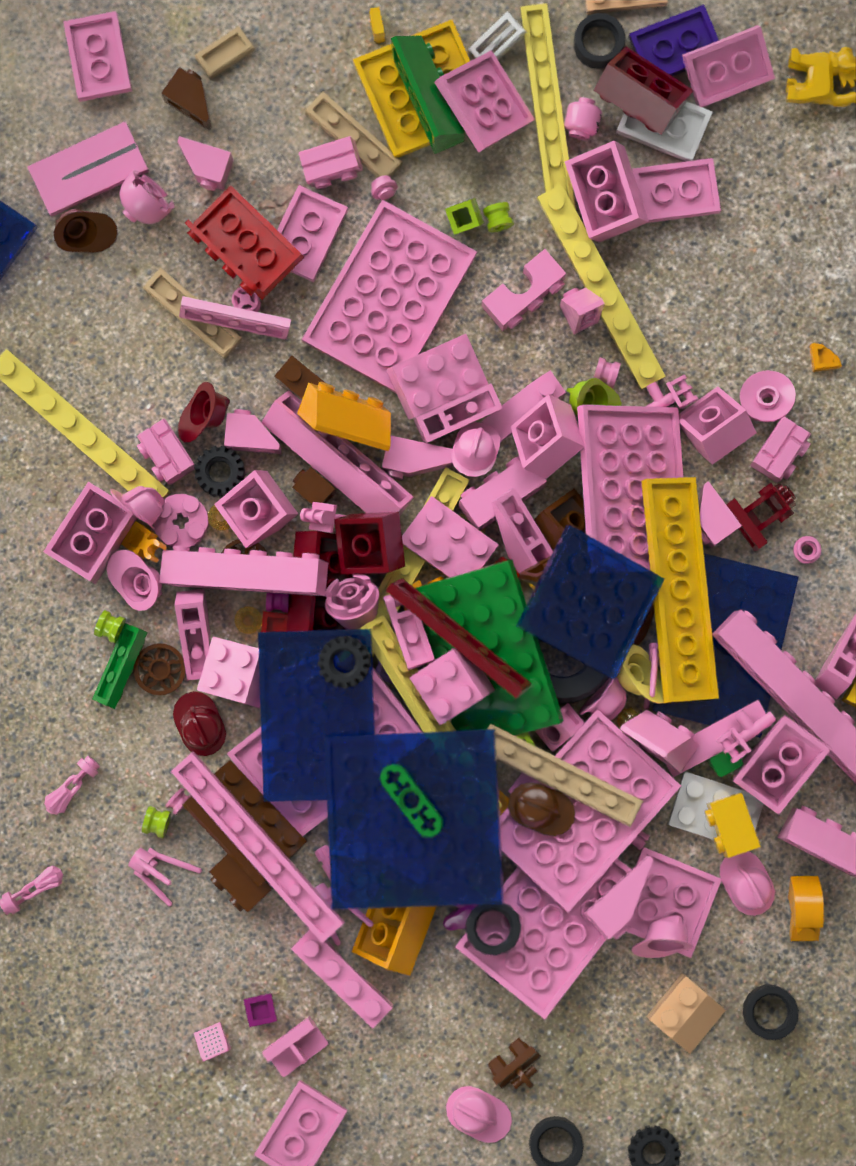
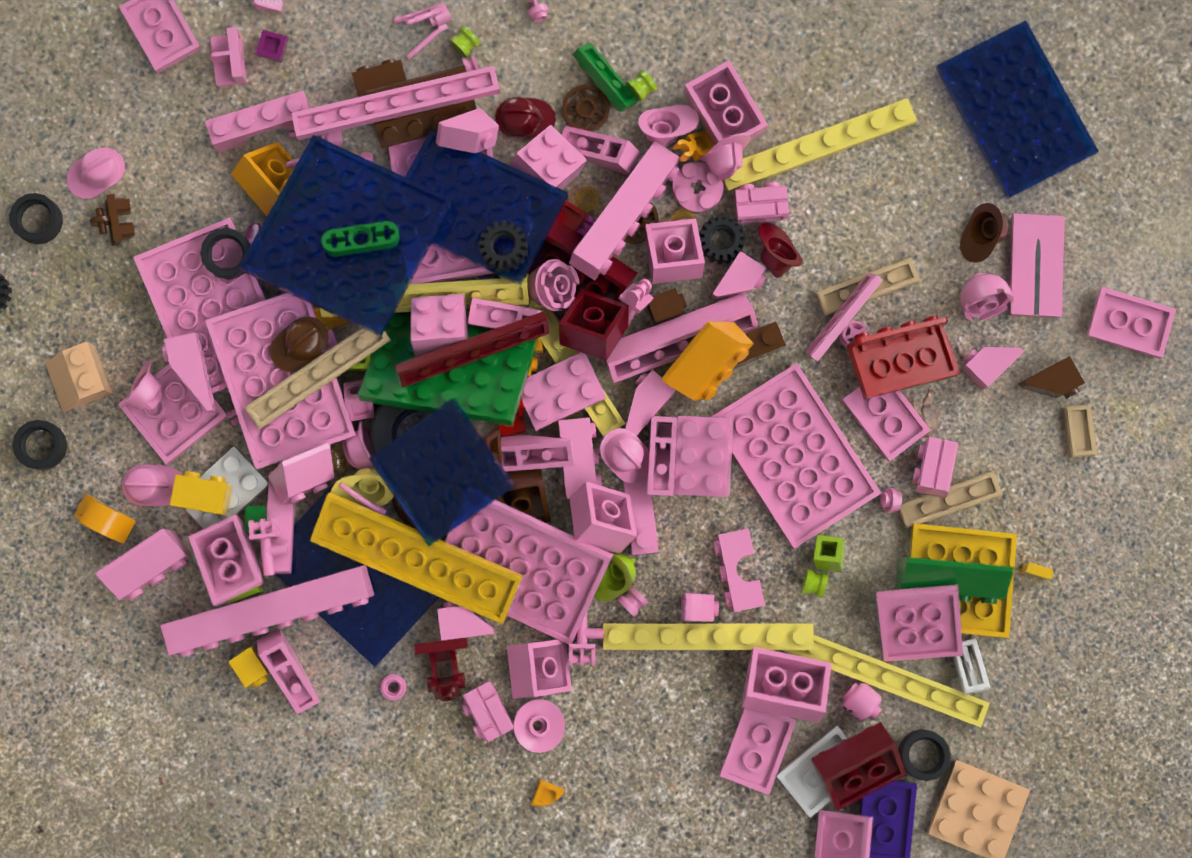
camera: 110 degrees right, 0 degrees up
(248, 760) = (468, 132): none -> bright pink slope

